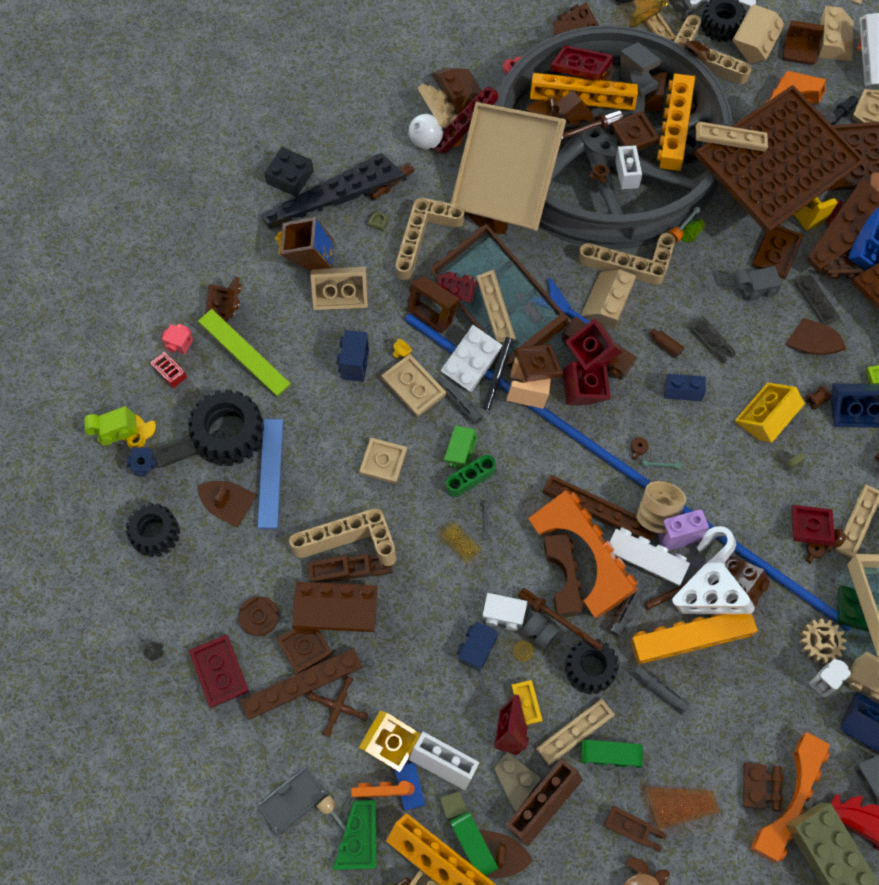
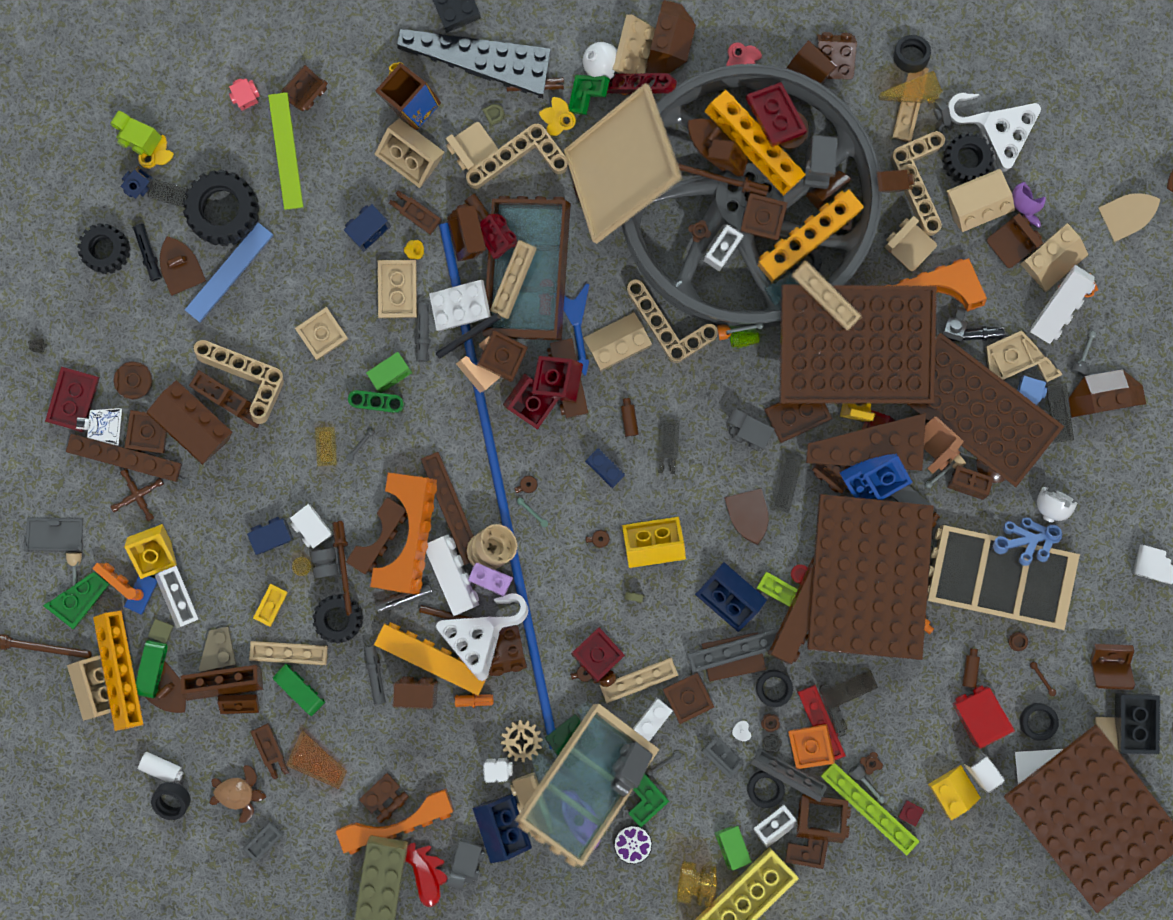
camera: 40 degrees right, 20 degrees up
(174, 380) = (218, 129): slope -> none
(209, 518) = (149, 259): none -> black pin
(263, 669) = (102, 425): none -> white torso
(381, 251) = (471, 146): none -> tan bracket
(381, 323) = (417, 213): none -> reddish brown hinge
(424, 188) = (555, 116): none -> yellow plate
(429, 156) = (583, 89): none -> green plate
(511, 728) = (241, 615): dark red slope -> none
(573, 810) = (238, 704): none -> reddish brown plate
(691, 166) = (774, 289): none -> clear light blue plate
(711, 666) = (415, 693): none -> reddish brown brick
(725, 446) = (594, 539): none -> reddish brown piece
(740, 94) = (910, 244): none -> tan bracket
(755, 642) = (474, 700): none -> orange axle
(787, 13) = (1026, 204): none -> medium lavender hair
(818, 397) = (703, 562): reddish brown bush -> none

